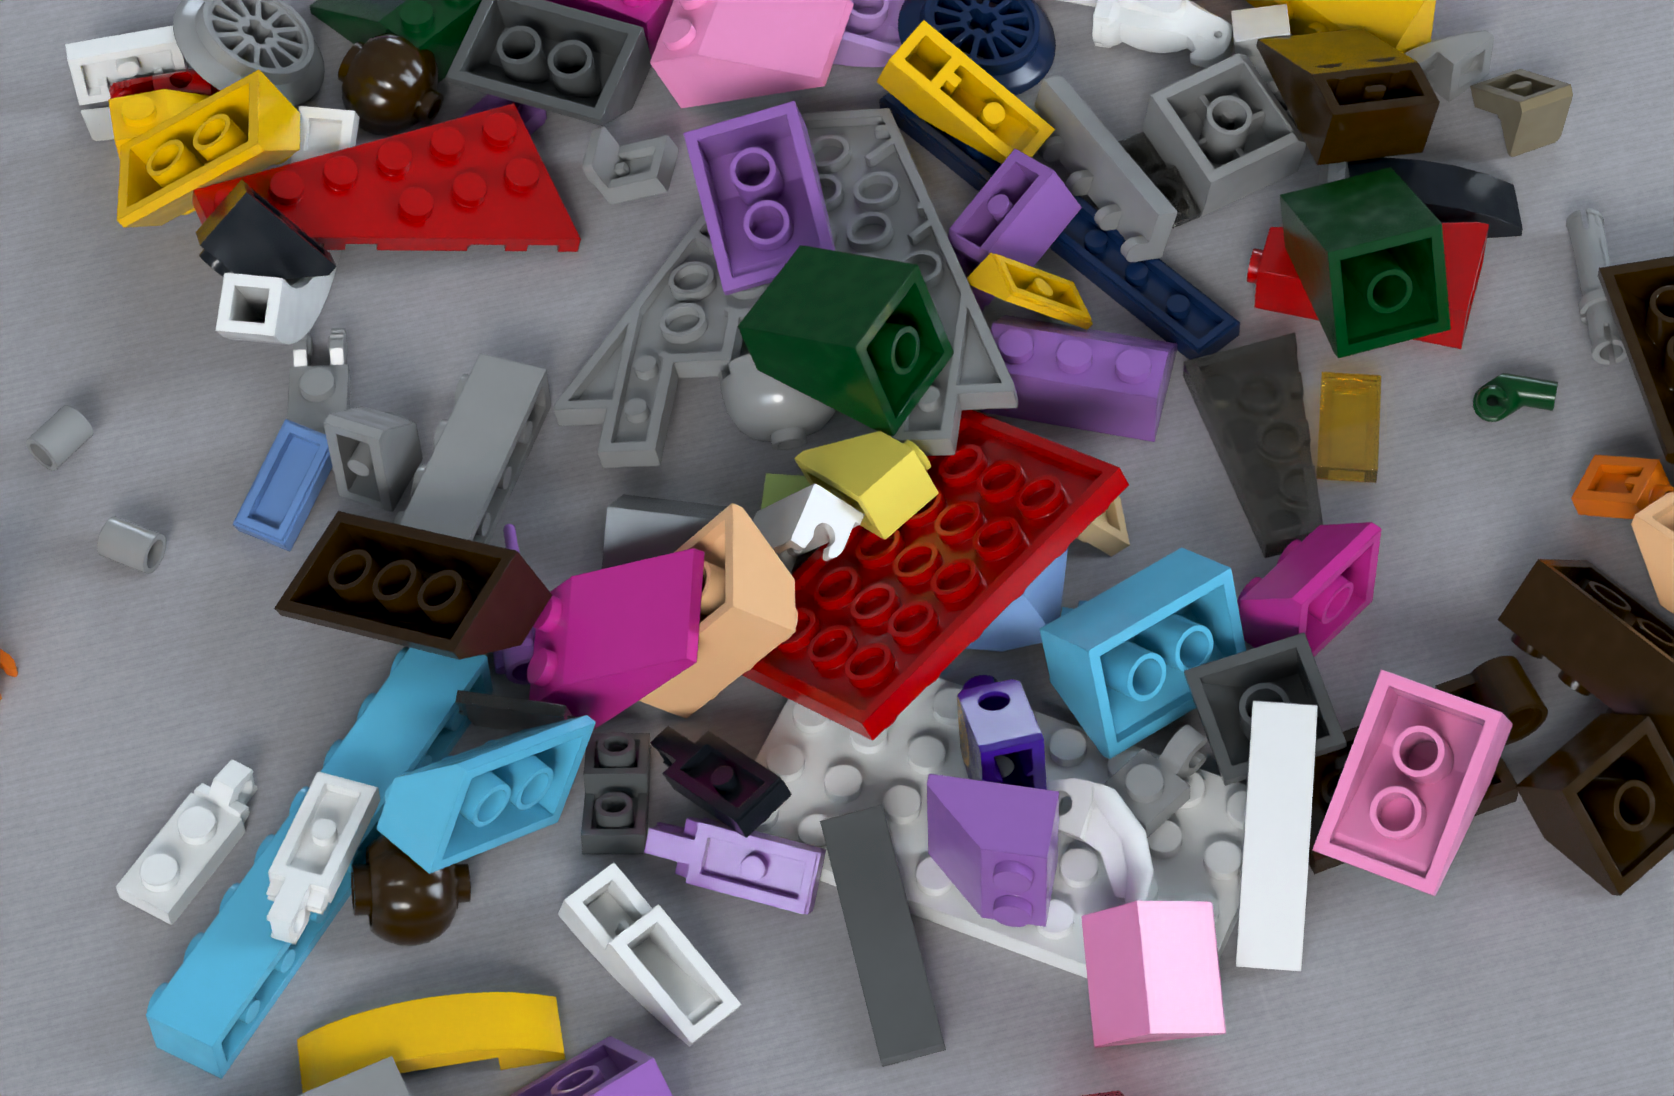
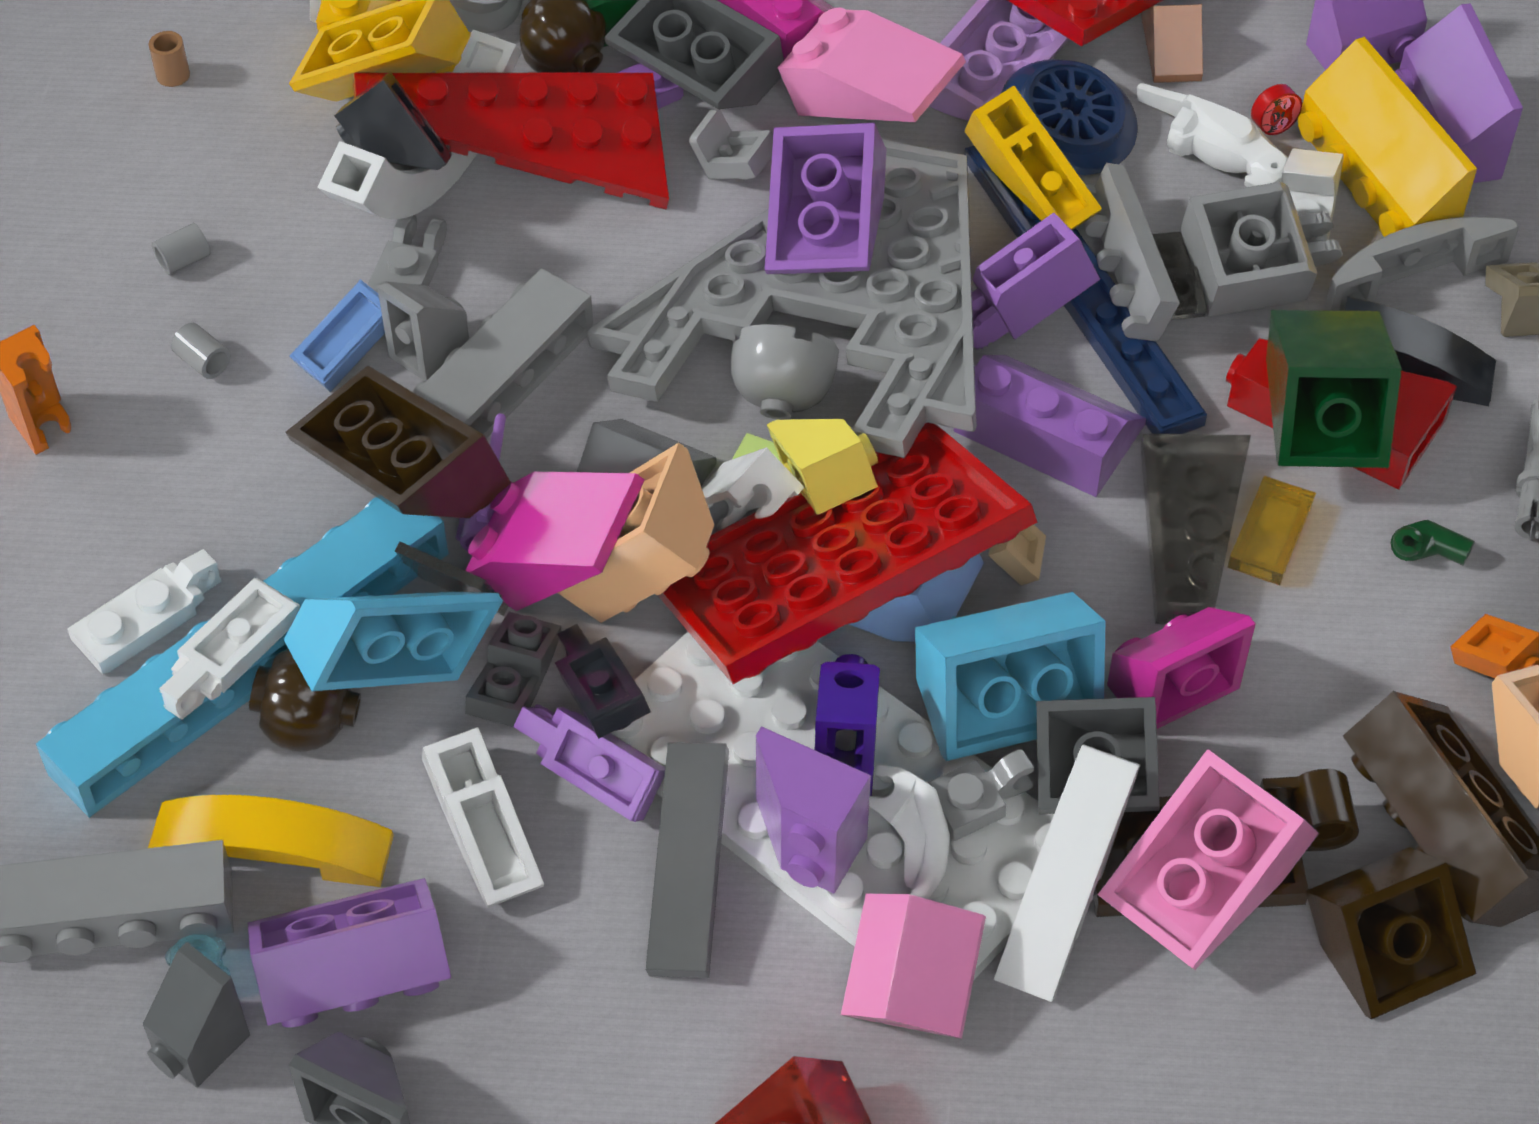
camera: 15 degrees right, 0 degrees up
(849, 334) = (845, 329): dark green slope -> none
(1031, 289) = (1028, 336): yellow slope -> none
(1351, 94) = (1368, 242): dark brown slope -> none

